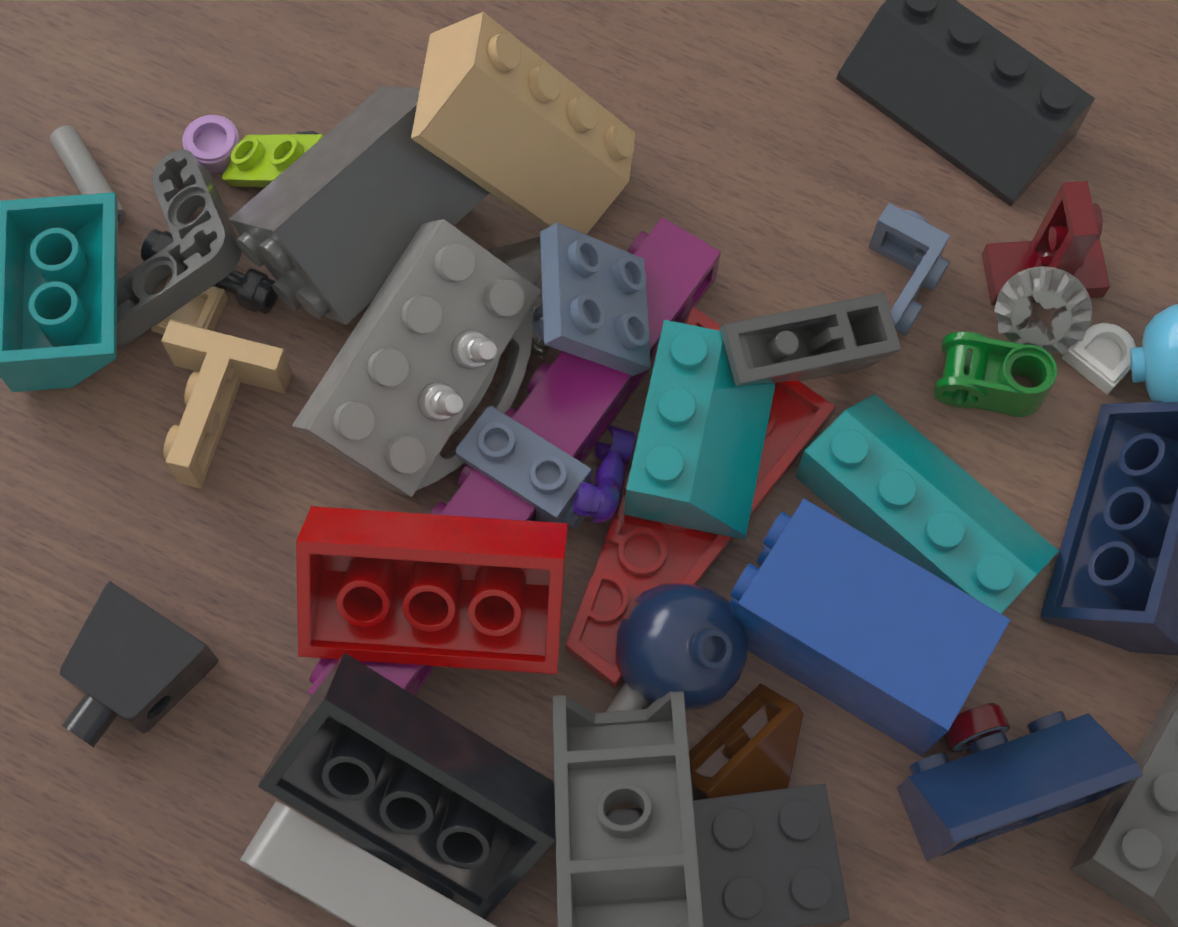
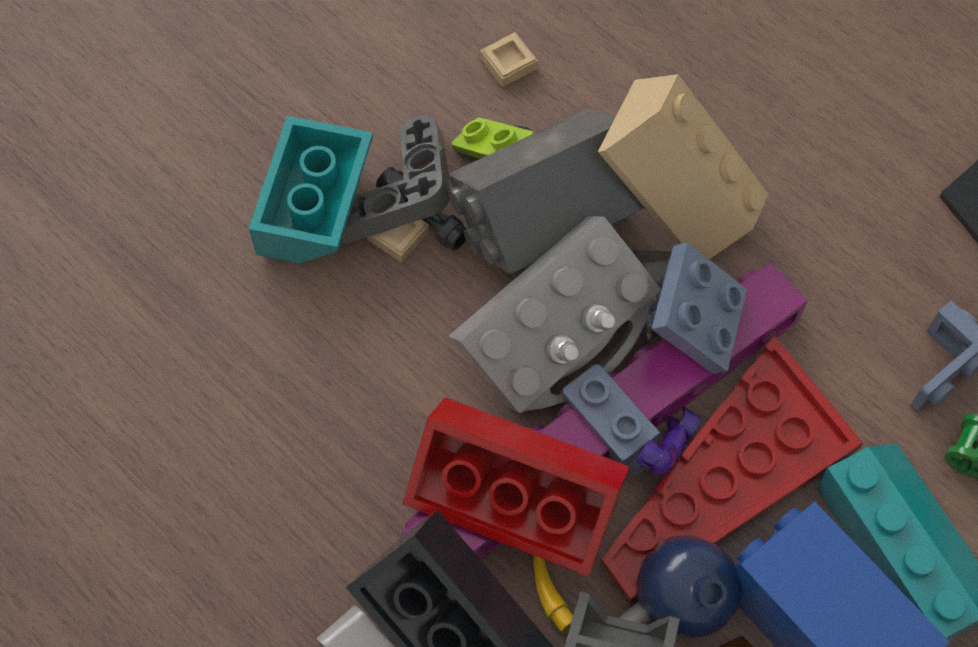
camera: 20 degrees right, 5 degrees down
(81, 164) = (353, 105): light grey piece -> none
(130, 666) = (280, 475): black torso -> none
(211, 141) = (451, 115): lavender tile -> none
(219, 367) = (406, 281): tan bracket -> none
(263, 50) = (508, 59): none -> tan tile
(519, 715) = (550, 599): none -> yellow helmet
(698, 437) = (752, 431): teal slope -> none
(811, 341) = (857, 387): dark grey slope -> none

